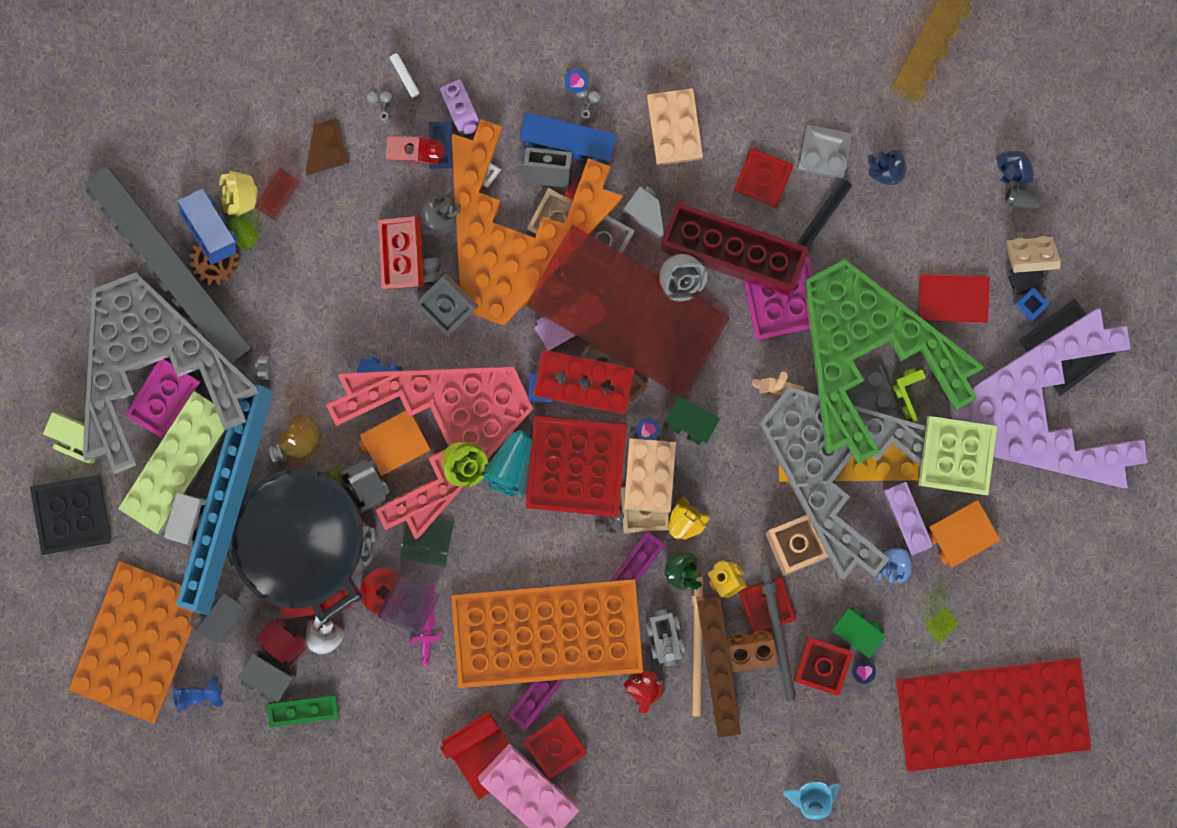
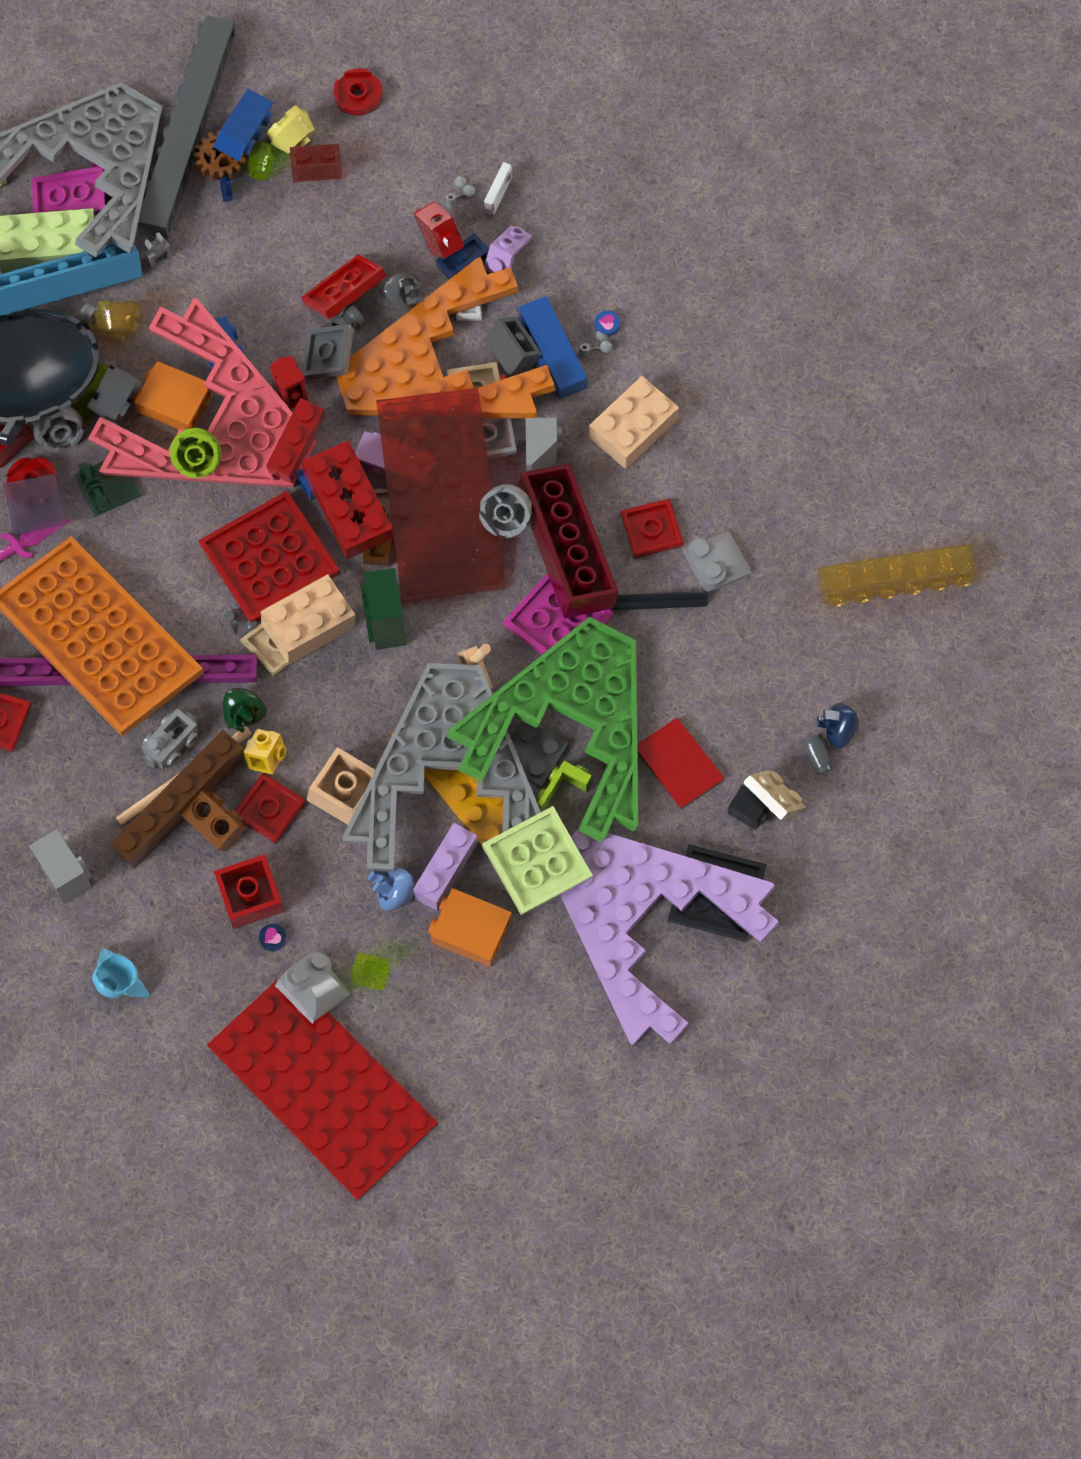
camera: 55 degrees right, 20 degrees down
(238, 129) = (348, 84): none -> red plate
(247, 277) = (226, 189): none -> clear blue tile
(326, 148) = (387, 176): reddish brown wing -> none
(450, 352) = (288, 381): none -> red brick
(507, 384) = (295, 440): none -> red brick
(510, 465) = (225, 499): teal cone -> none
(645, 688) = (109, 754): red piece -> none
(647, 429) = (351, 592): blue tile -> none
(686, 520) = (291, 678): yellow brick -> none
(707, 781) = (62, 865): none -> light grey brick
(768, 589) = (284, 792): dark grey bar -> none
(858, 631) = (305, 902): green brick -> none
(889, 168) = (746, 619): dark blue piece -> none
(924, 671) = (313, 986): none -> light grey slope
(1031, 304) = (728, 827): blue brick -> none

